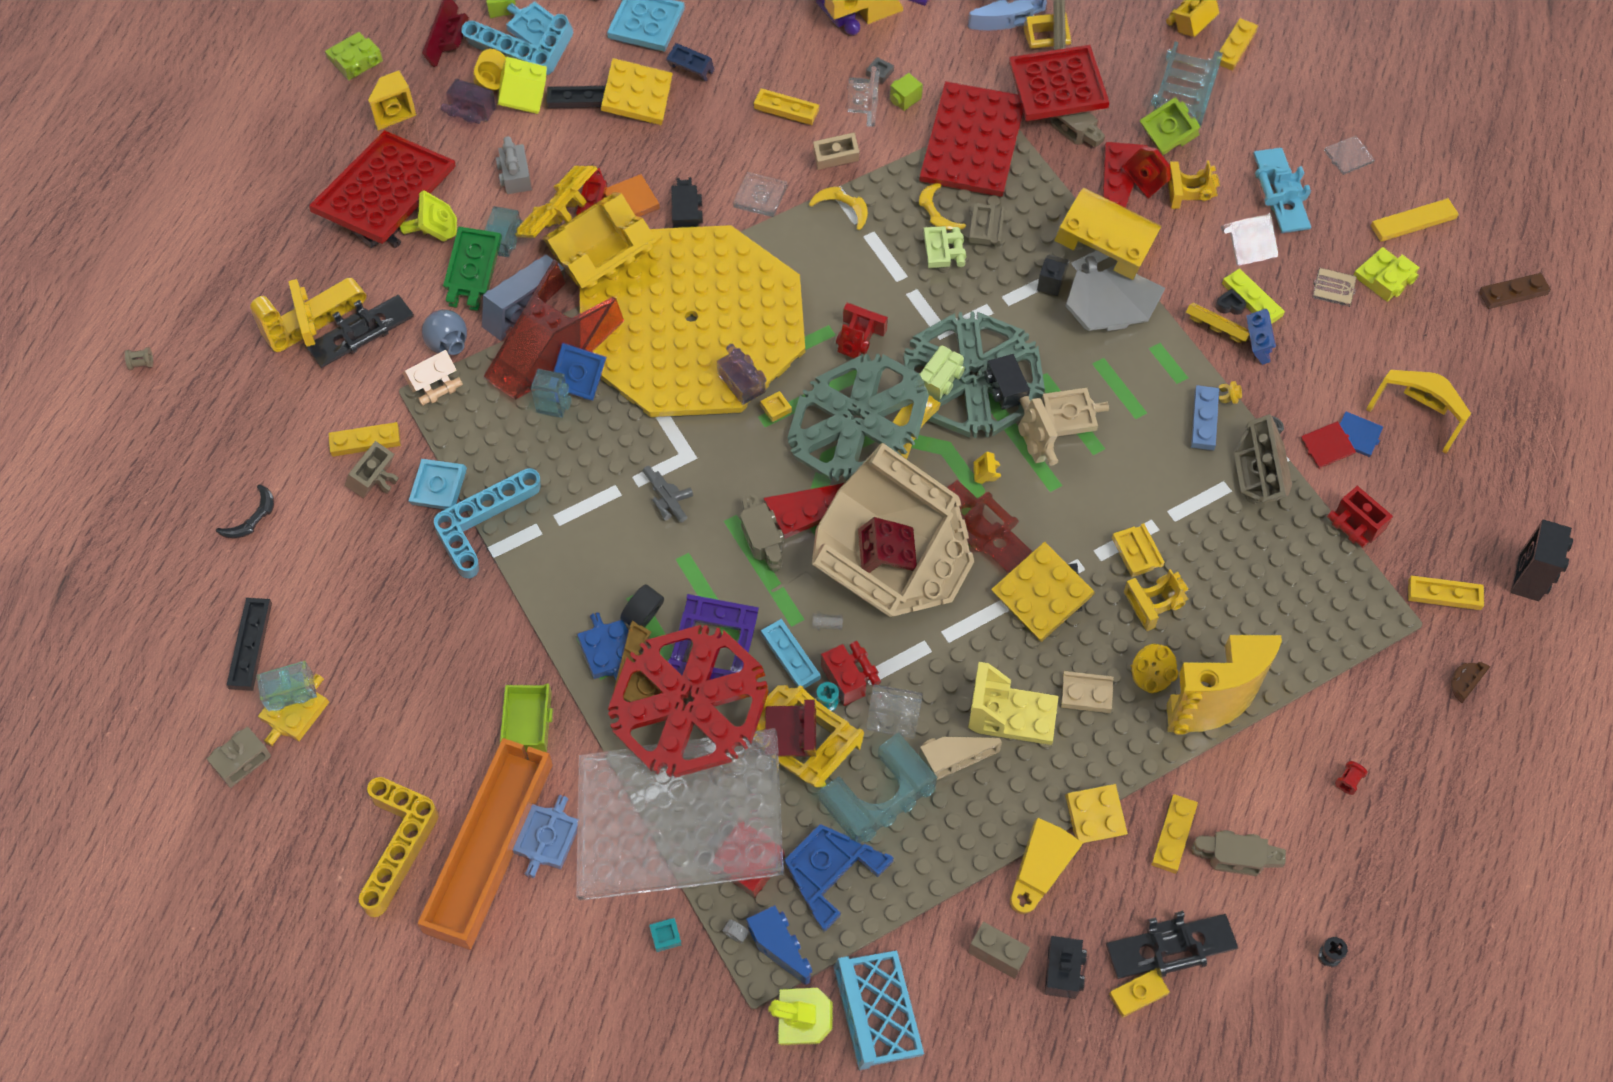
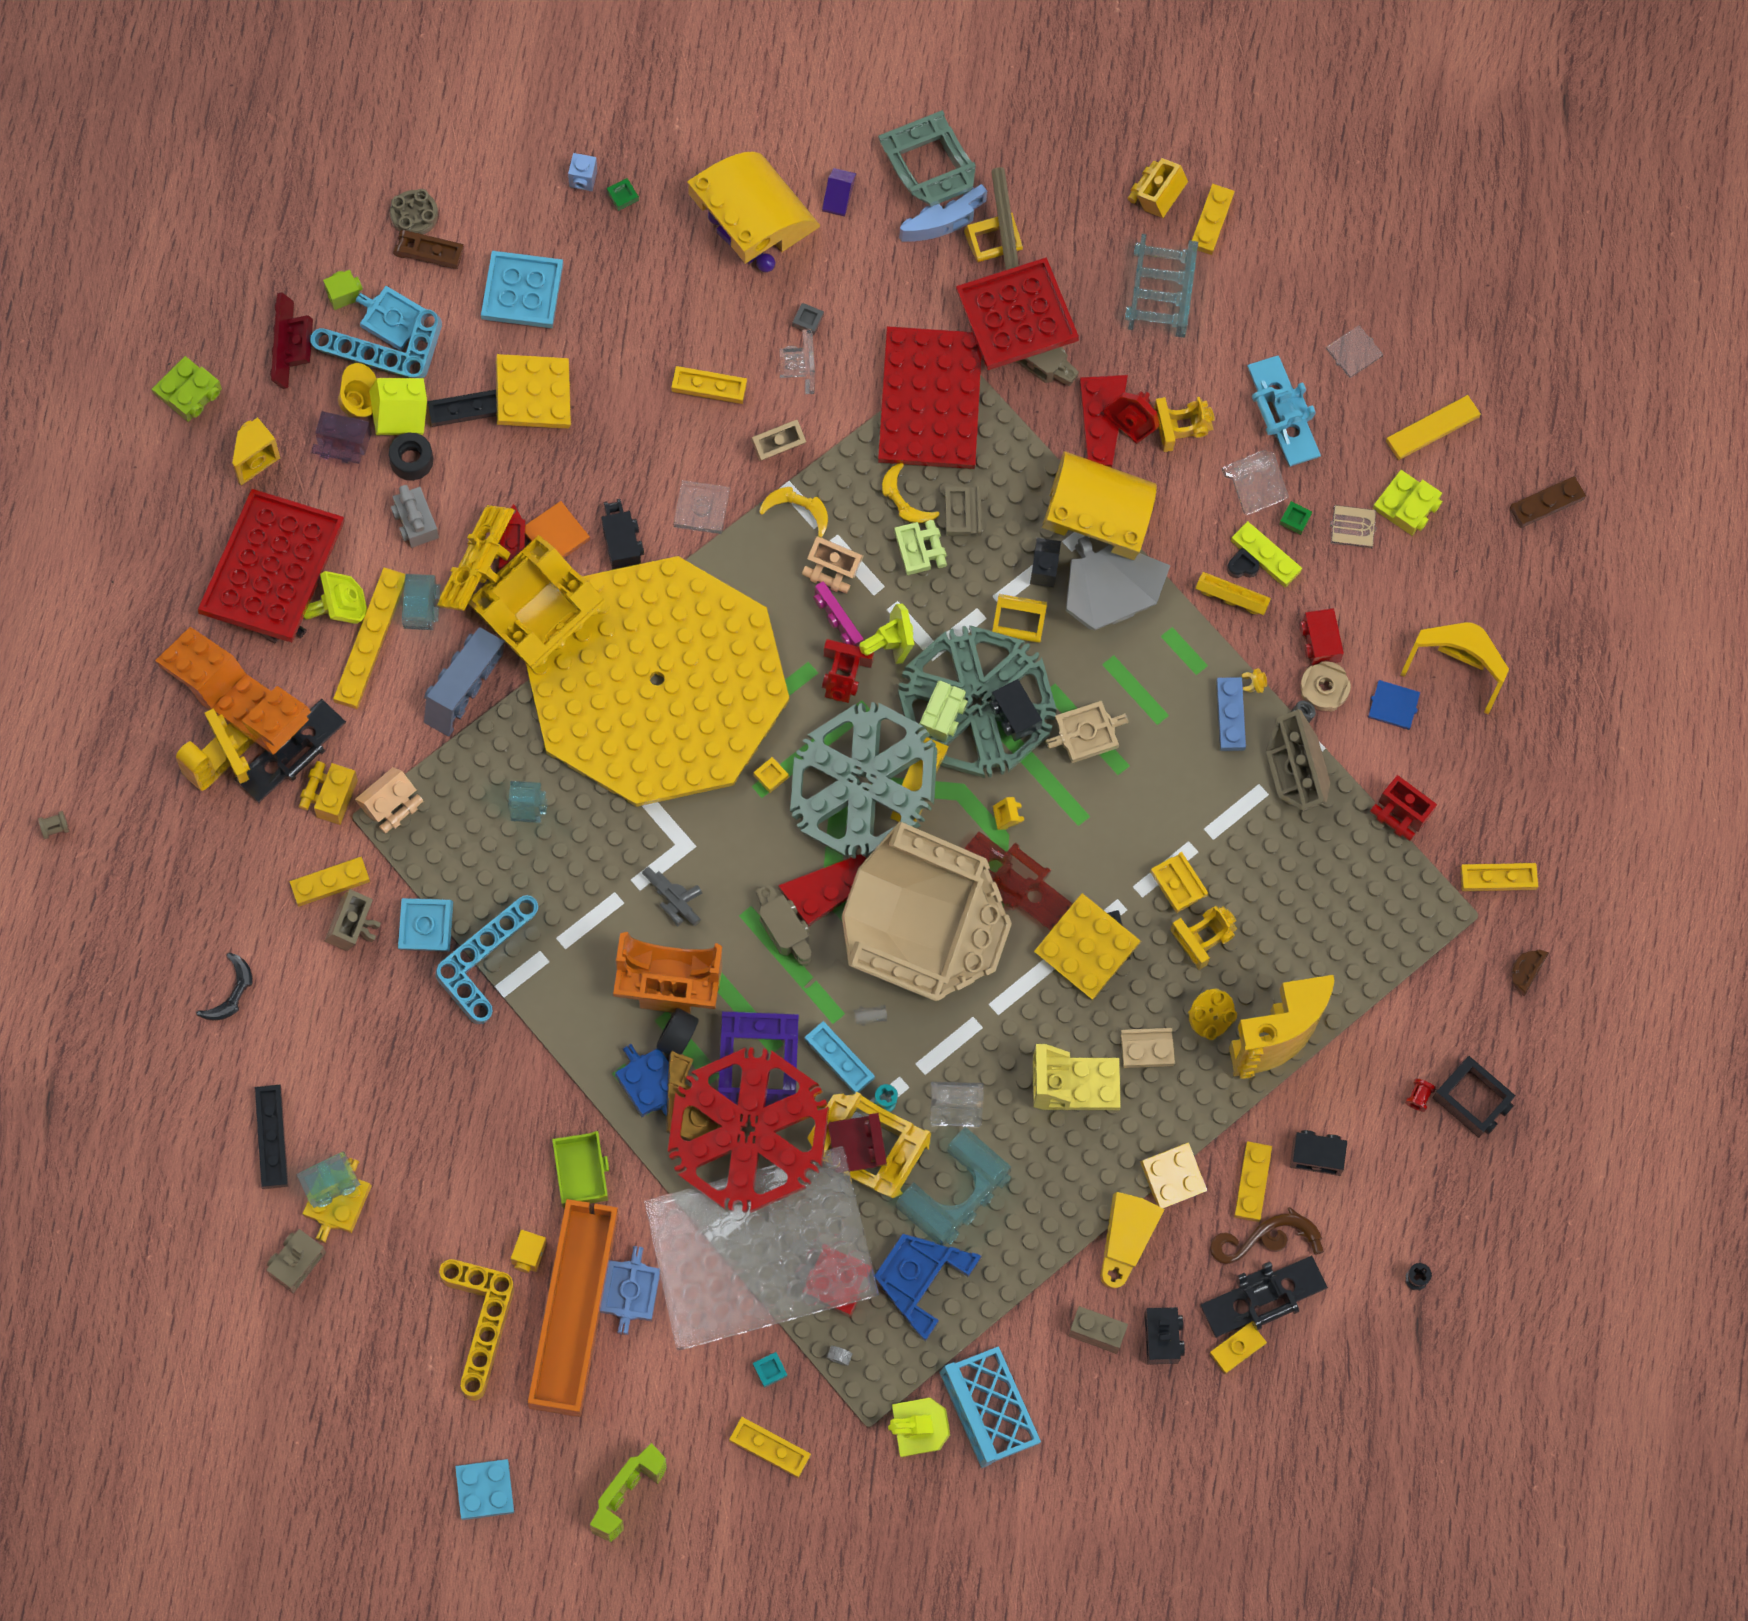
camera: 15 degrees left, 10 degrees up
(311, 262) = (222, 684): none -> orange bracket
(359, 1005) = (484, 1489): none -> medium azure plate
(383, 365) = (335, 792): none -> yellow brick
(433, 279) = (370, 638): none -> yellow plate
(444, 331) = (389, 742): sand blue brick -> none
(458, 783) = (528, 1251): none -> yellow brick
(471, 265) = (398, 652): green tile -> none
(485, 1025) = (649, 1462): none -> lime plate
(523, 115) = (407, 442): none -> black tyre
(540, 333) = (503, 741): clear red windscreen -> none
(581, 370) = (552, 768): blue plate -> none
(639, 555) = (667, 976): none -> orange piece
(649, 1011) = (770, 1447): none -> yellow plate
(690, 60) = (587, 342): dark blue hinge -> none
(741, 375) = (729, 748): brick -> none
(775, 942) = (880, 1359): blue slope -> none
(842, 671) = (899, 1072): red brick -> none
(859, 286) = (836, 615): none -> dark pink plate
(867, 242) = (833, 557): none -> light nougat brick
(886, 543) = (919, 923): dark red bracket -> none
(905, 307) = (893, 635): none -> neon yellow piece
(906, 91) = (842, 345): lime brick -> none
(955, 753) = (1022, 1138): tan slope -> none
(1028, 302) = (1020, 604): none -> yellow tile
(1038, 431) = (1056, 764): tan plate -> none
(1170, 126) = (1150, 348): lime plate -> none
(1186, 896) = (1293, 1219): none -> reddish brown plant
(1239, 853) = (1318, 1193): dark tan hinge -> none
(1243, 815) = (1318, 1153): none -> black brick
(1261, 335) = (1279, 605): blue bracket -> none
(1283, 271) = (1295, 518): none -> green plate
(1291, 419) = (1329, 699): none -> tan plate
(1297, 368) = (1321, 636): none -> red brick
(1328, 444) = (1364, 723): red piece -> none
(1401, 812) = (1463, 1115): none -> black window
(1542, 560) = (1591, 831): black brick -> none

